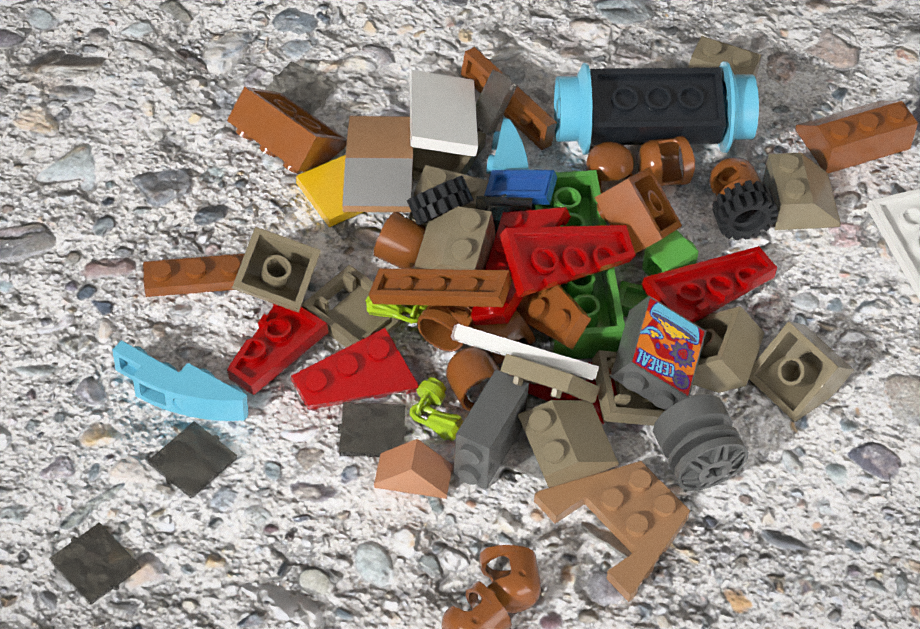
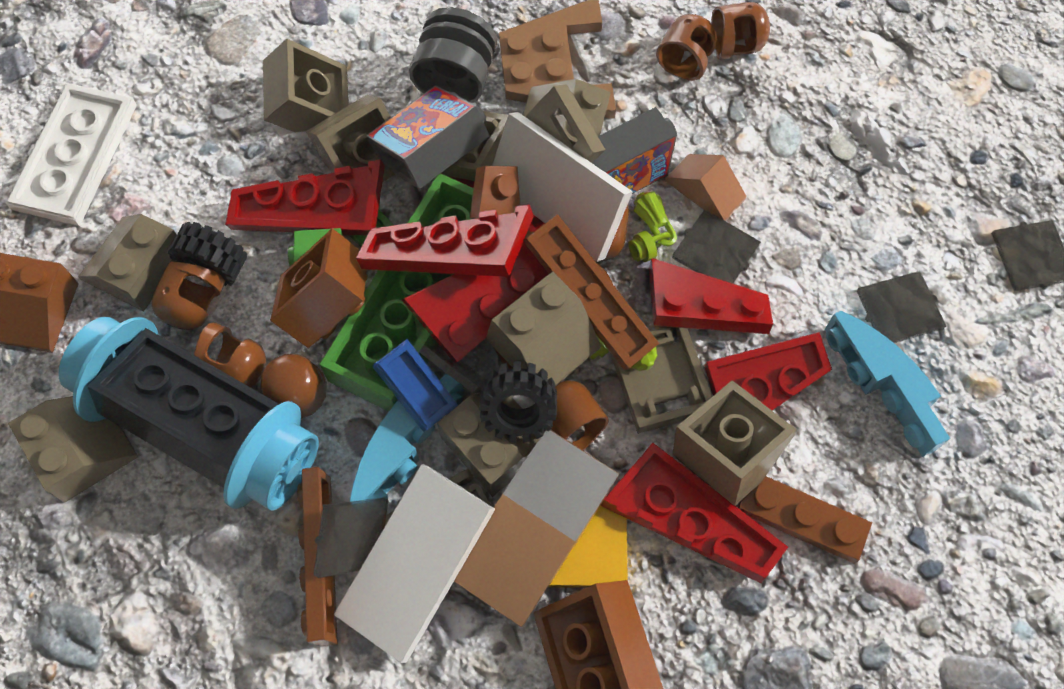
camera: 145 degrees left, 15 degrees up
(307, 224) = (688, 511): none -> red wing

